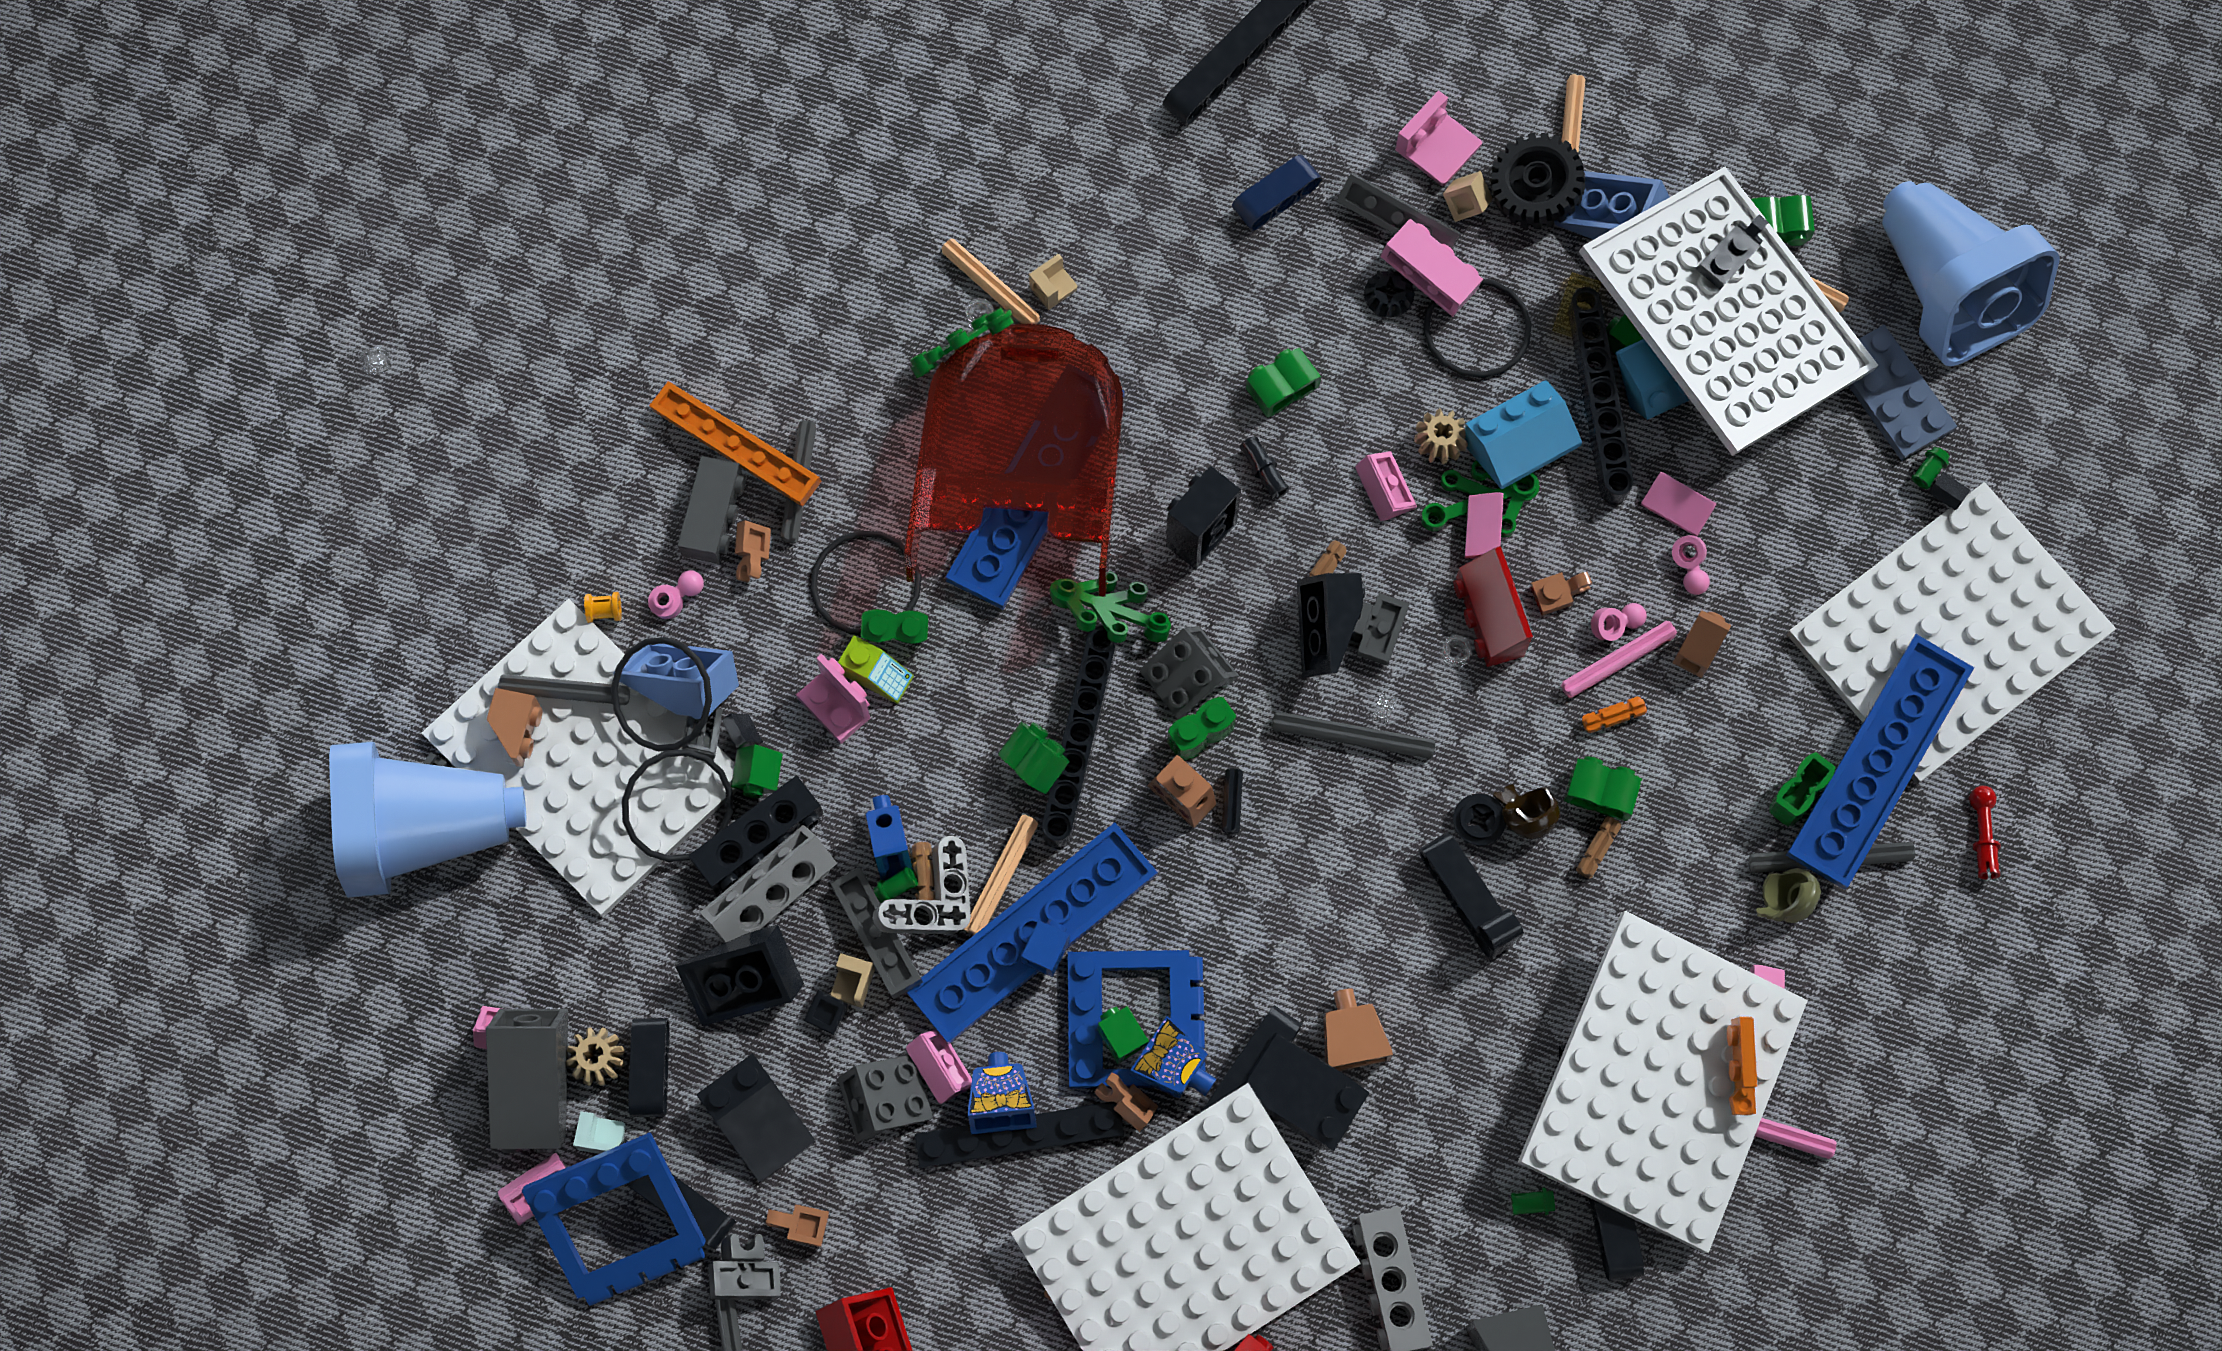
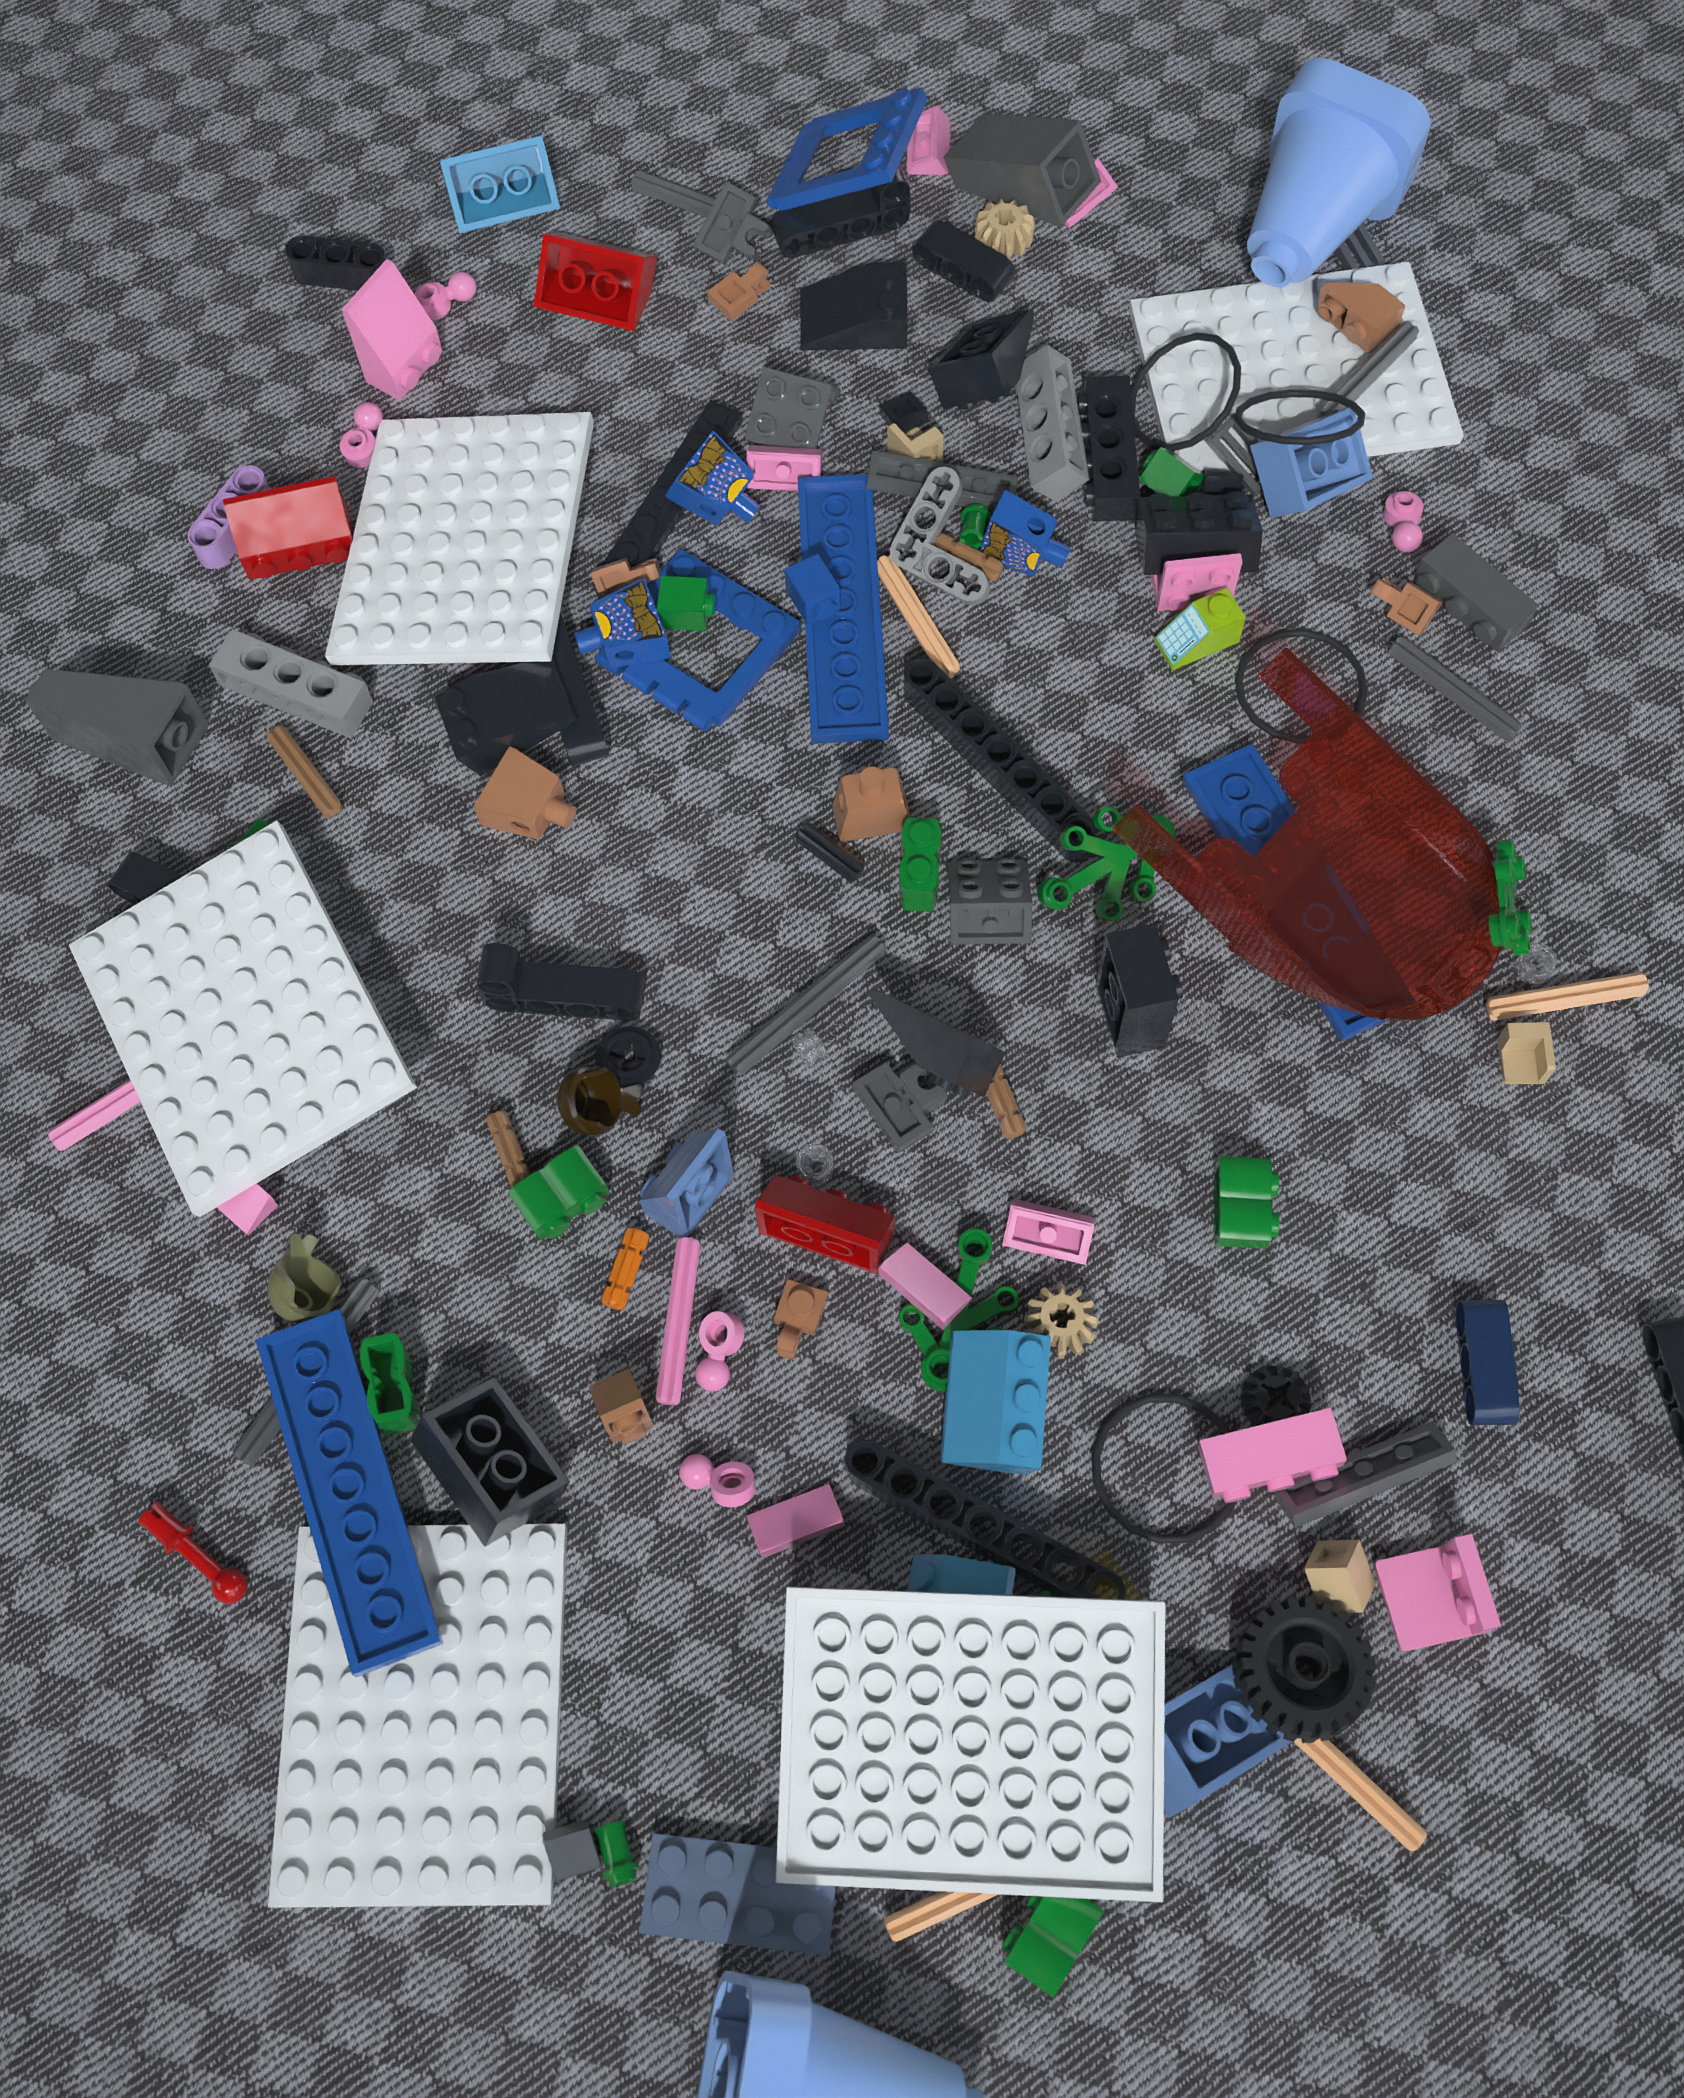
camera: 130 degrees right, 5 degrees down
(597, 1134) = (935, 197): light aqua panel -> none
(603, 607) = (1433, 454): light orange bush -> none
(735, 443) = (1533, 648): orange plate -> none
(800, 715) = (1197, 528): none -> black brick
(905, 627) = (1231, 665): green brick -> none
(1034, 756) = (1003, 693): green brick -> none
(1264, 467) = (1157, 1117): black pin -> none
(1449, 1216) = (304, 771): none -> medium nougat axle
(1539, 704) = (689, 1182): none -> medium blue slope
(1732, 252) = (1036, 1800): hinge -> none
(1743, 1066) = (179, 1077): orange hinge -> none
(1797, 689) = (489, 1461): none -> black brick

